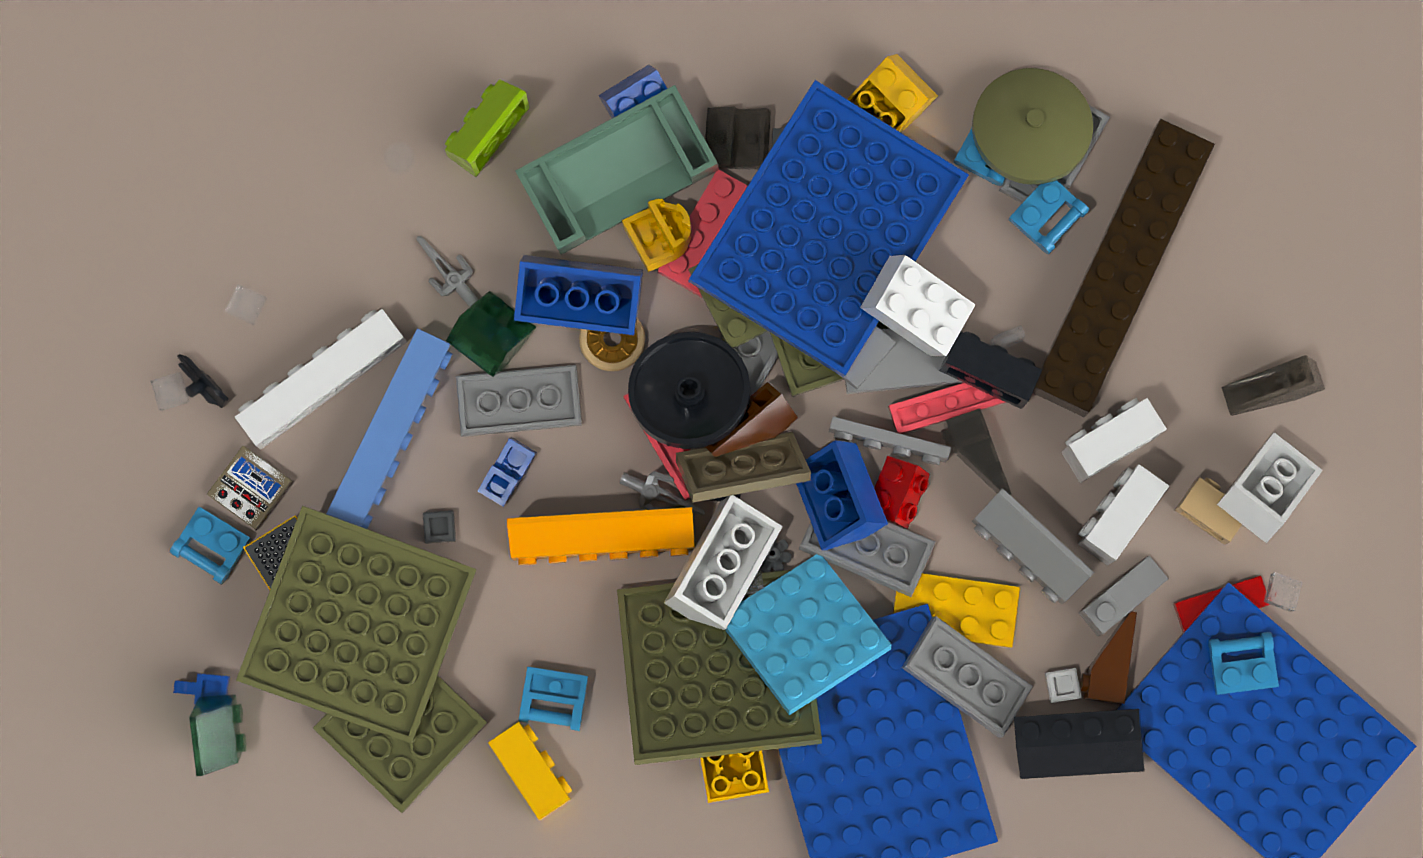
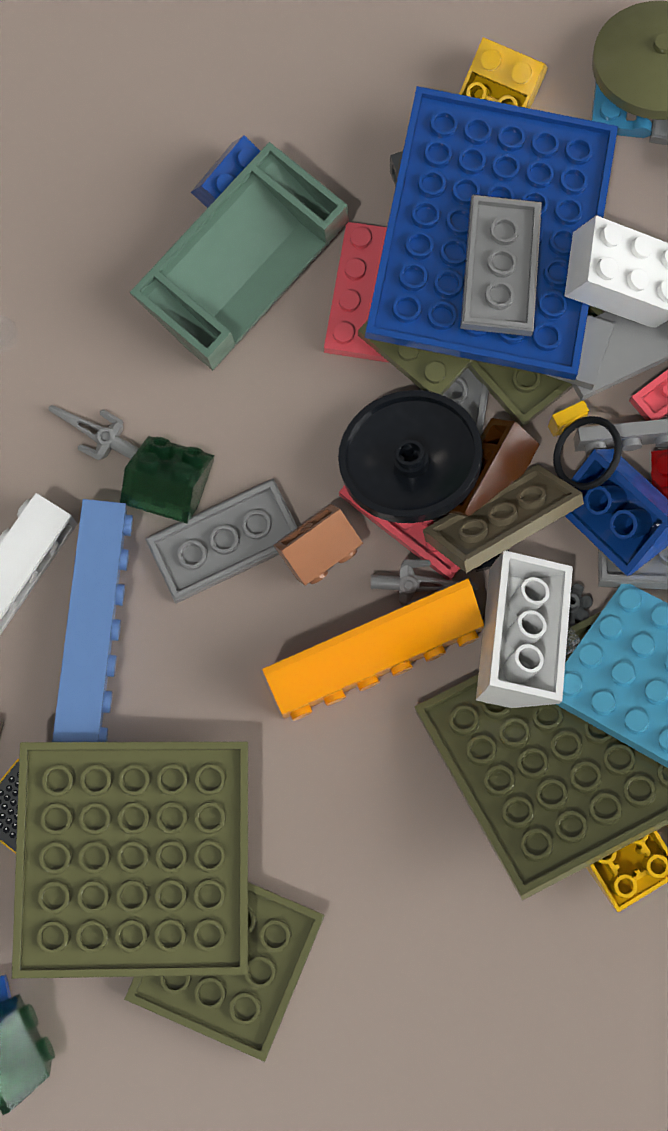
camera: 15 degrees left, 5 degrees down
(439, 527) = (187, 711): dark grey tile -> none
(487, 126) = (83, 263): lime slope -> none
(507, 471) = (241, 622): slope -> none
(531, 770) = (397, 952): yellow brick -> none
(556, 688) = (387, 845): dark azure plate -> none
(578, 294) = (248, 402): blue slope -> none
(590, 434) = (319, 545): none -> nougat brick
(609, 357) = (308, 457): wheel -> none
(659, 233) = (311, 306): yellow slope -> none
(738, 136) = (358, 180): clear smoke slope -> none
(820, 262) = (501, 265): none -> light grey tile
(831, 404) = (562, 419): none -> yellow tile
(833, 413) = (613, 465): none -> black tyre

